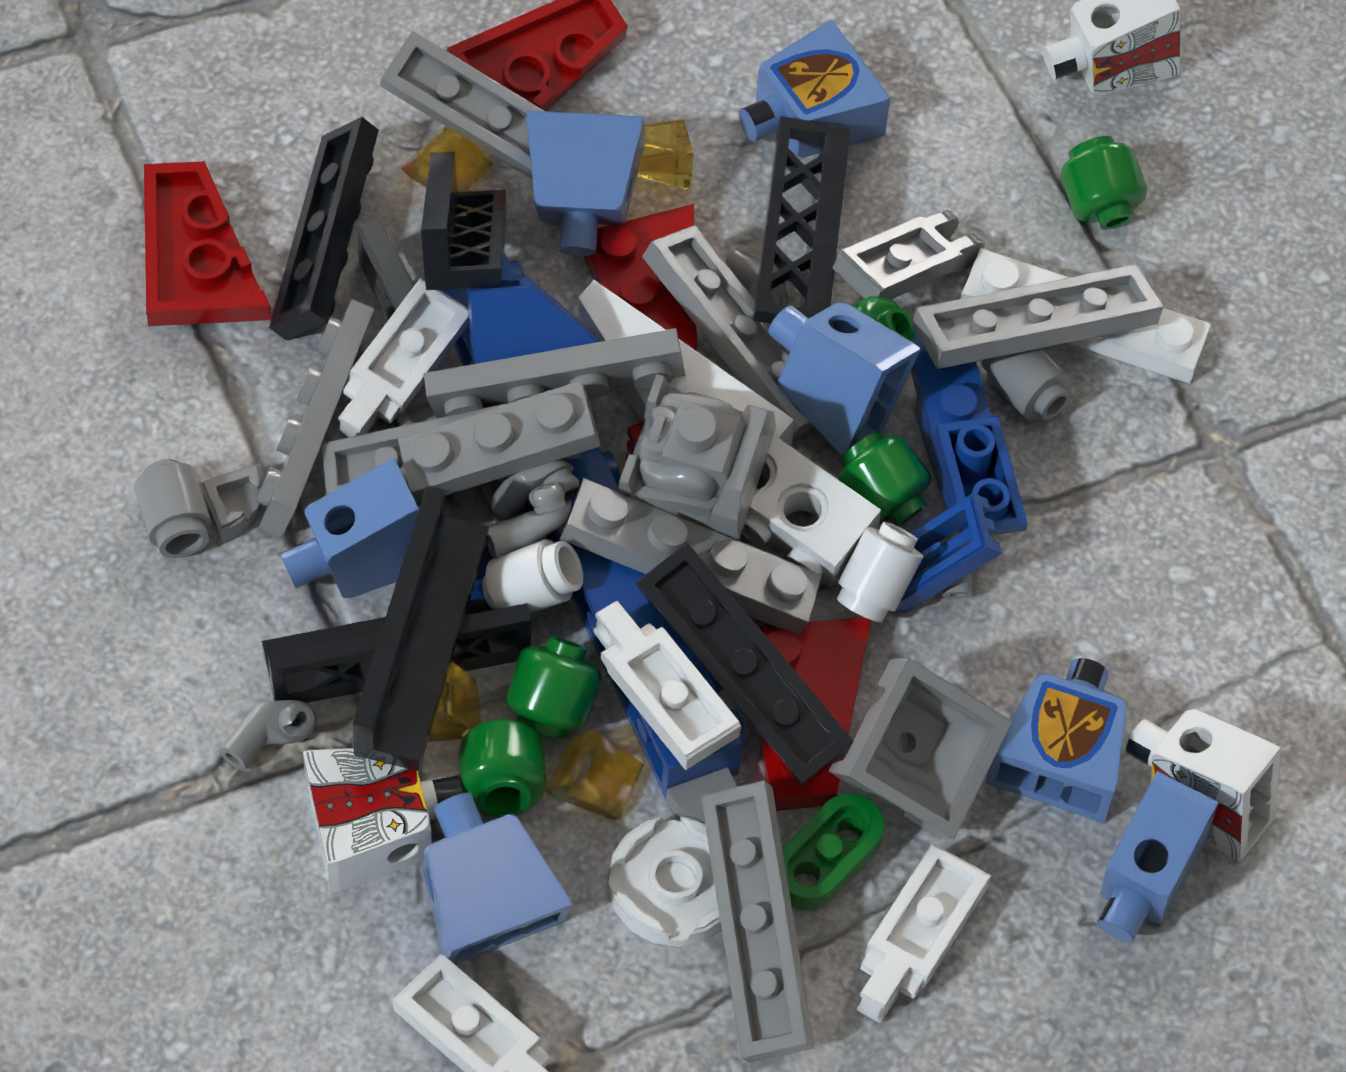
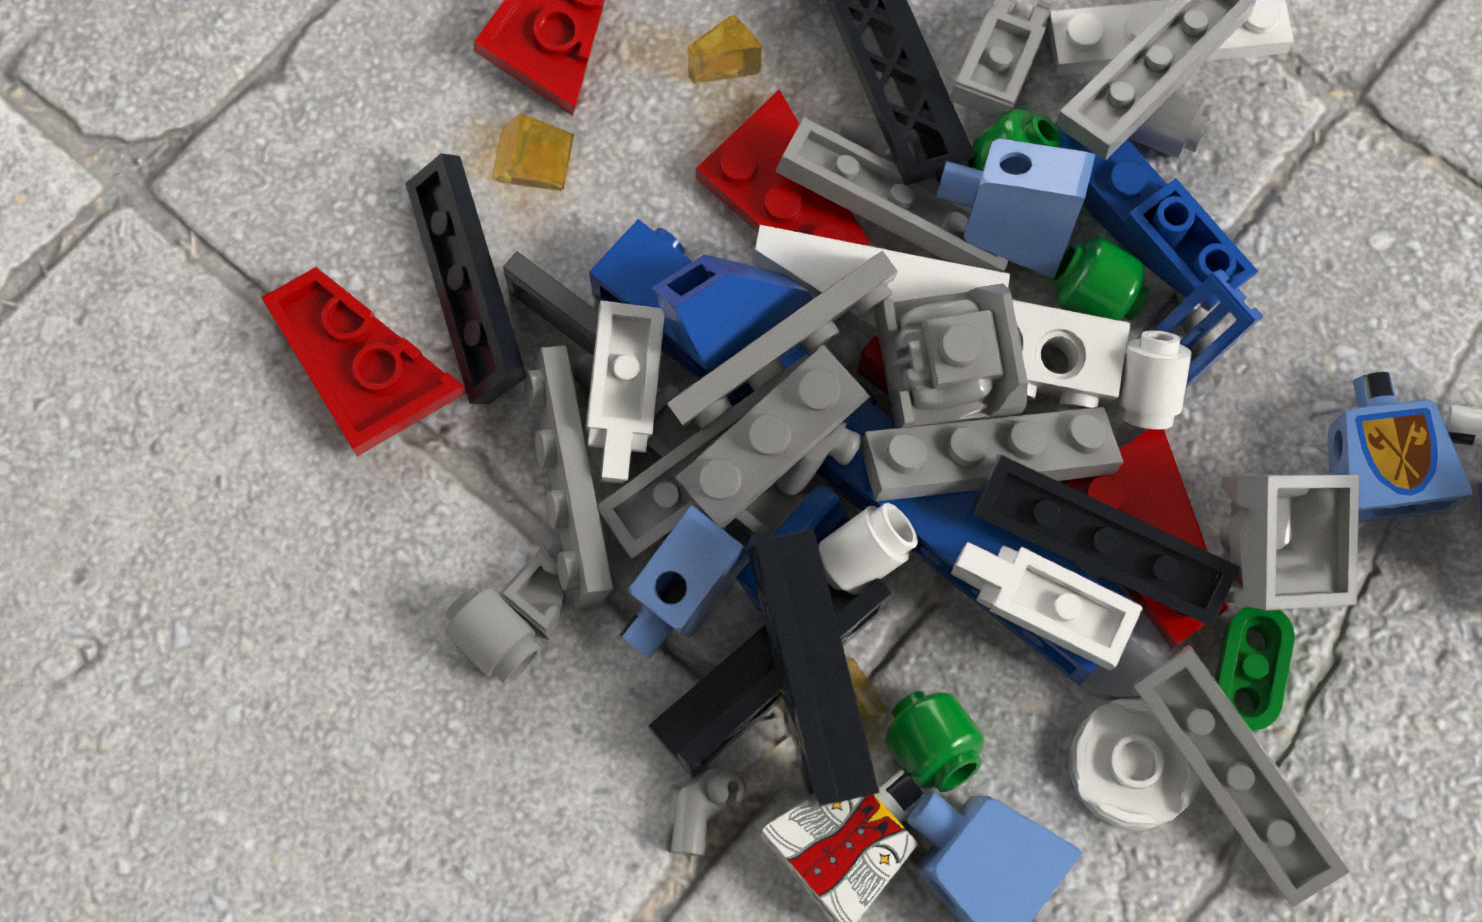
camera: 25 degrees left, 15 degrees up
(461, 231) = (602, 242): black fence -> none
(462, 100) = (564, 94): light grey plate -> none
(532, 527) = (851, 485): light grey arm -> none
(553, 687) = (938, 641): green head -> none
(584, 172) = (678, 113): medium blue torso -> none
(595, 775) = (1009, 697): clear yellow slope -> none
(919, 929) = (1369, 702): white hinge -> none

